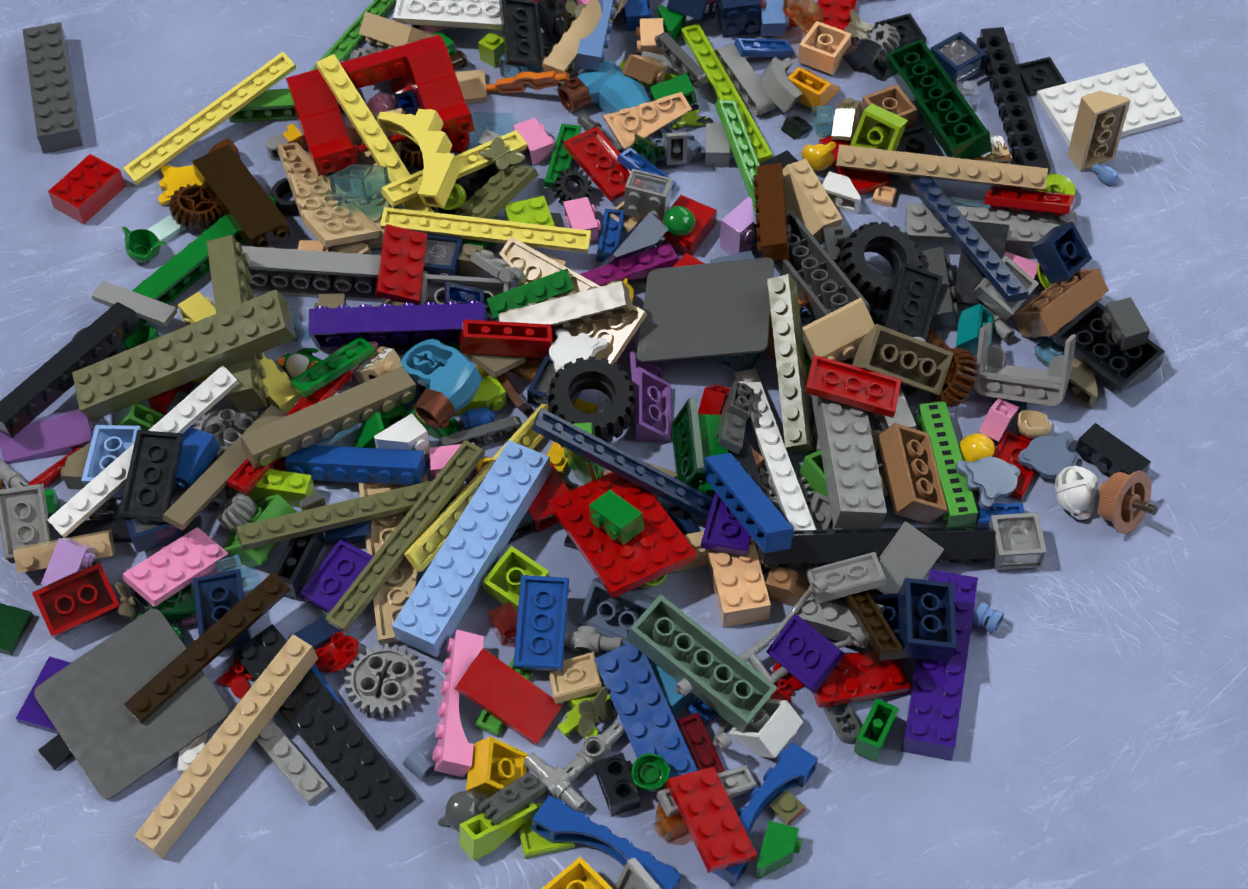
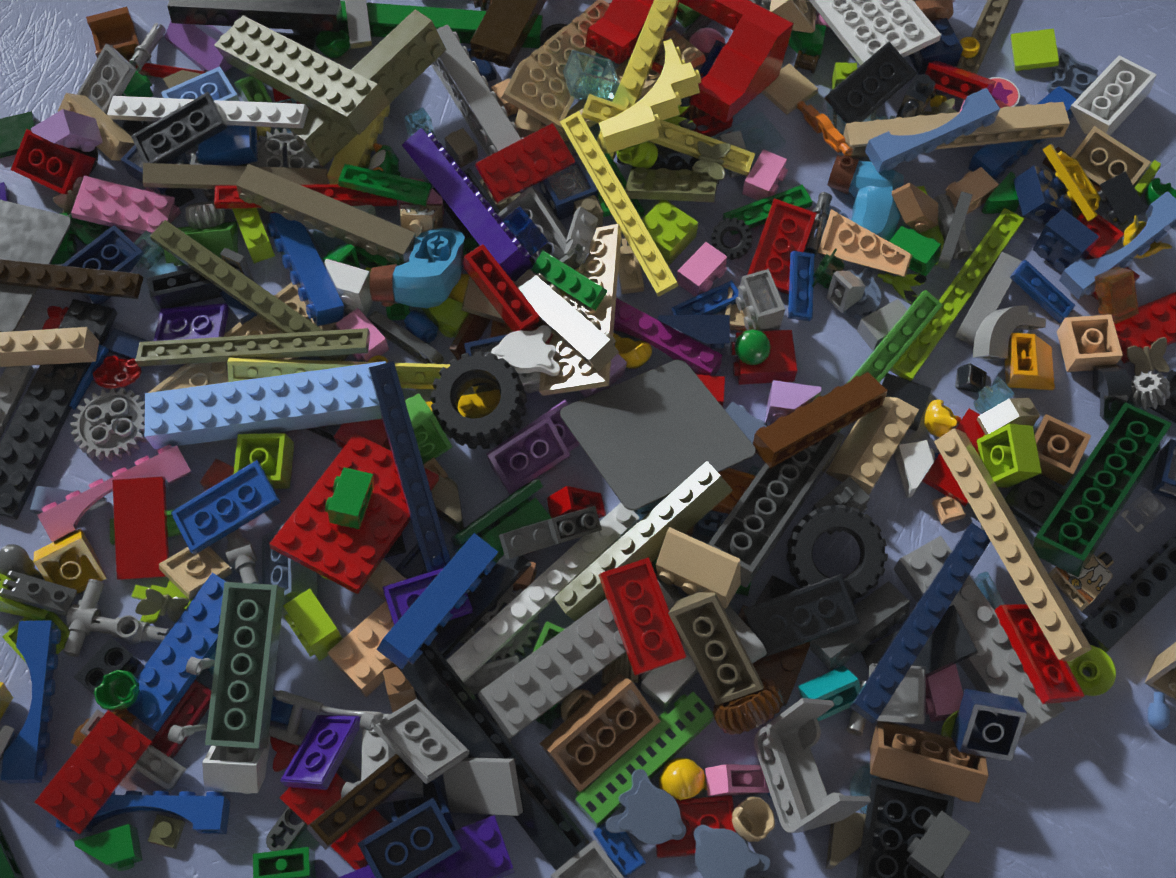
camera: 55 degrees right, 10 degrees up
(698, 604) = (312, 624): none -> lime brick

